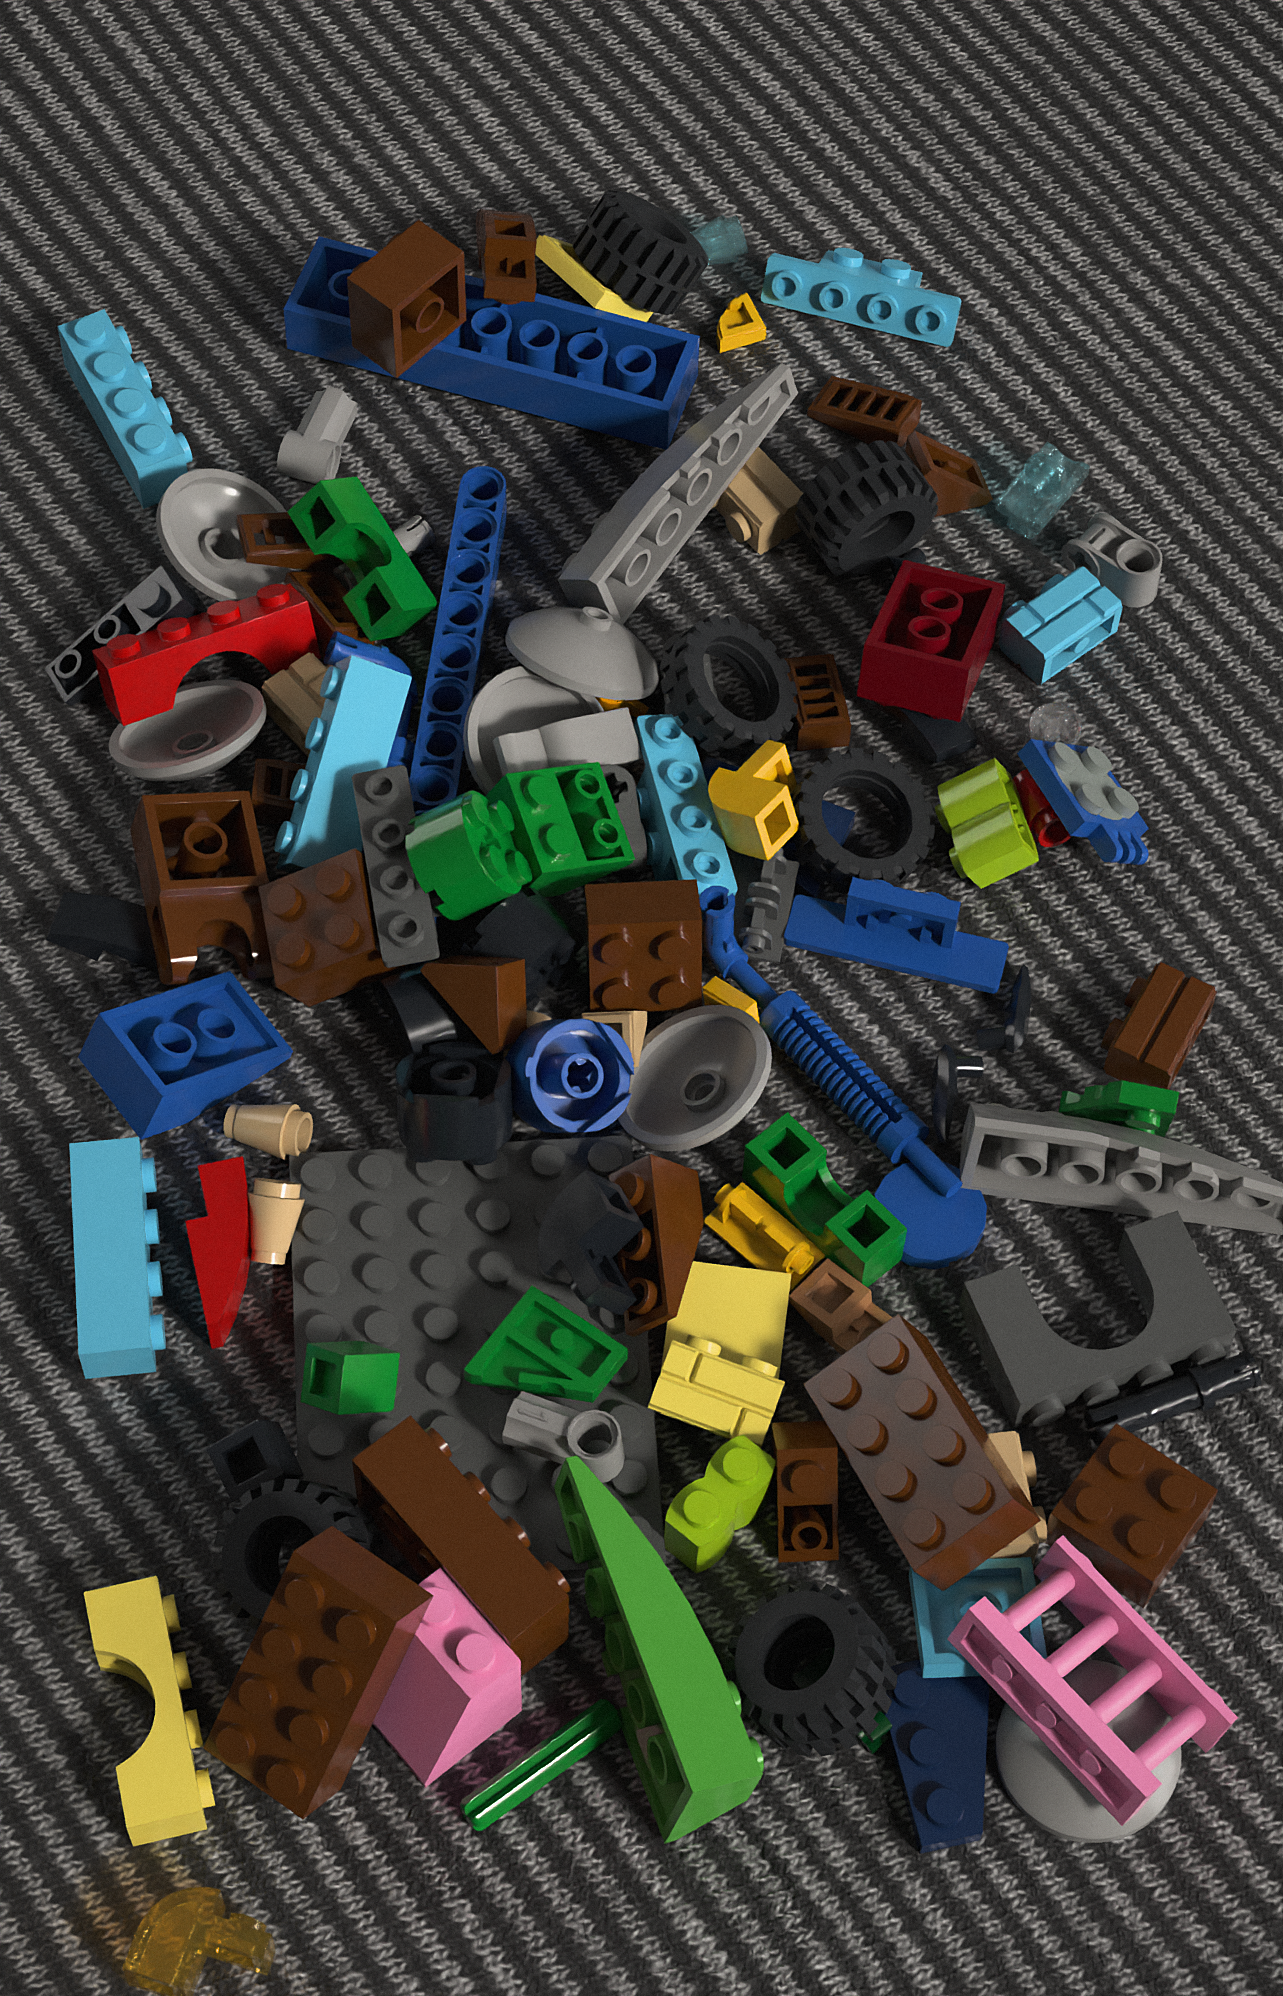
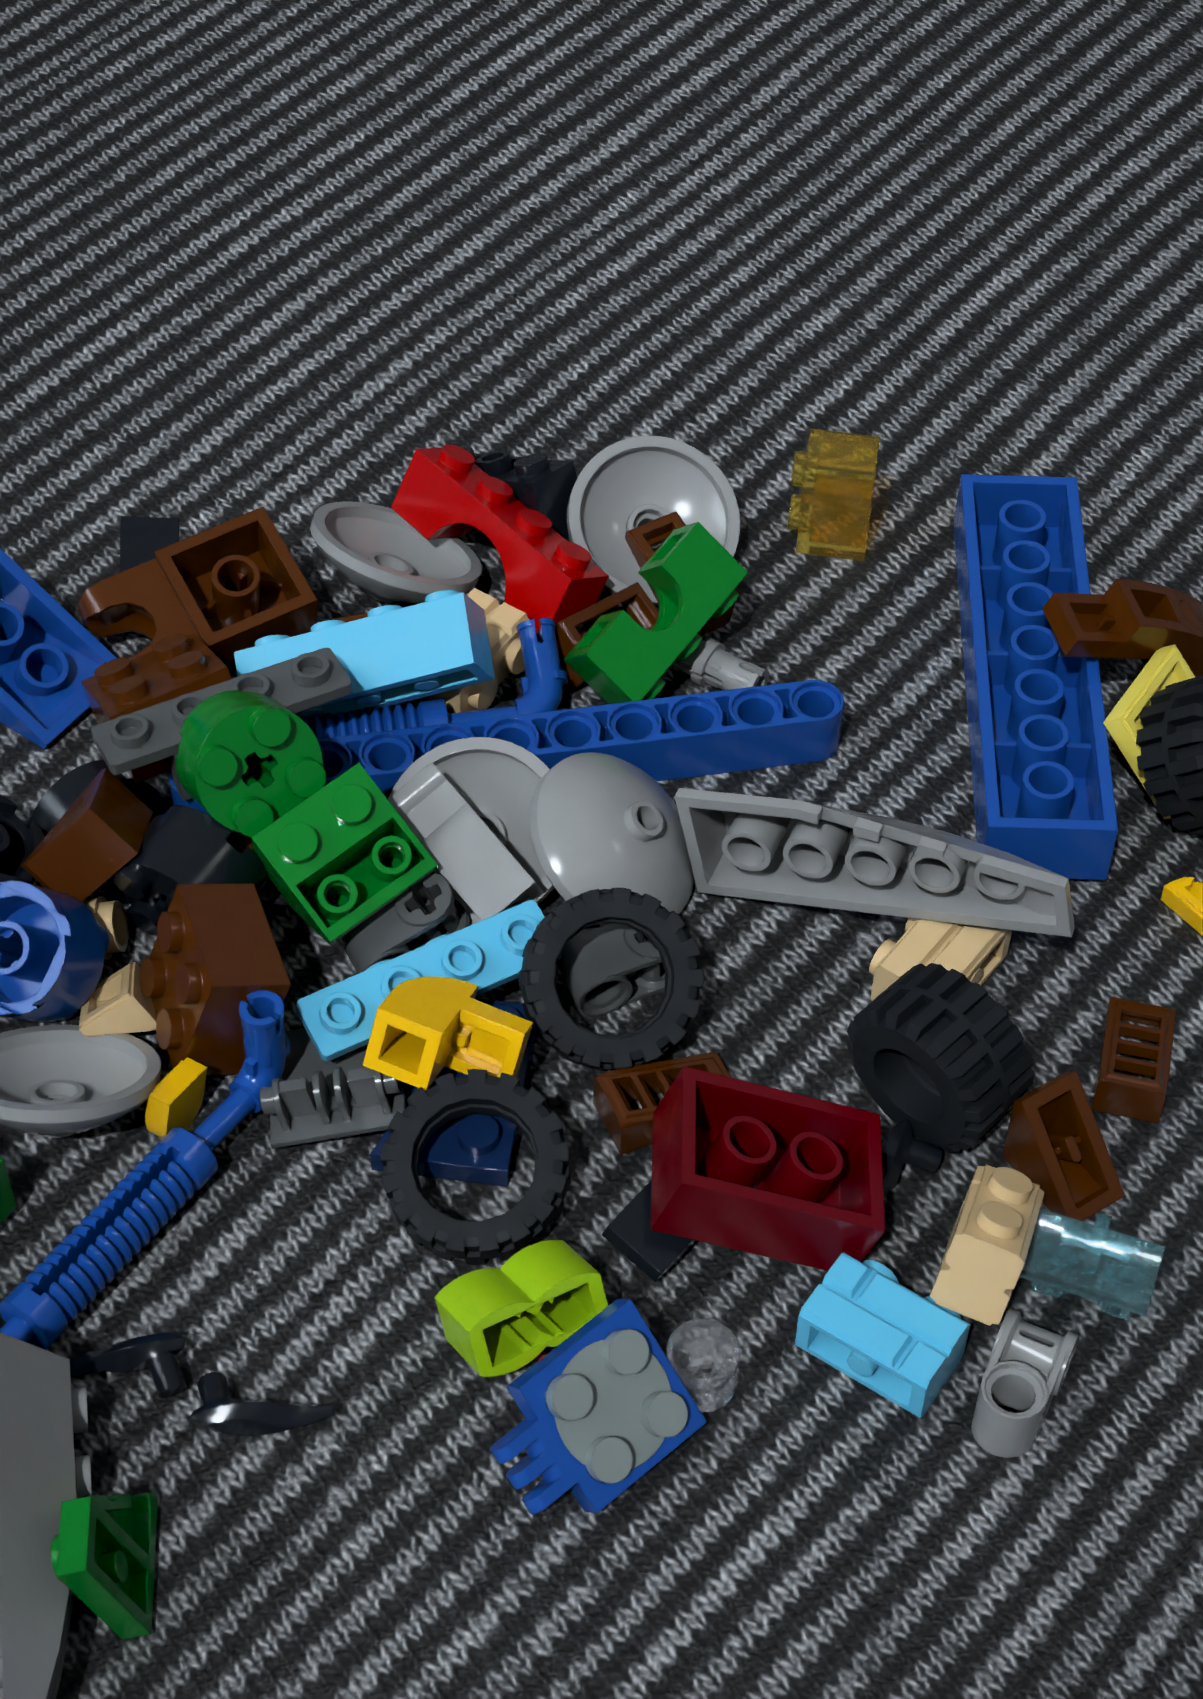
camera: 75 degrees right, 10 degrees down
(123, 405) = (823, 391): medium azure brick -> none
(255, 402) = (835, 494): none -> clear yellow brick
(315, 447) = (815, 570): light grey piece -> none
(407, 298) = (988, 533): reddish brown brick -> none
(898, 933) = (330, 1262): blue bracket -> none
(1023, 533) = (988, 1244): none -> tan brick
(1159, 1028) = (263, 1581): reddish brown brick -> none

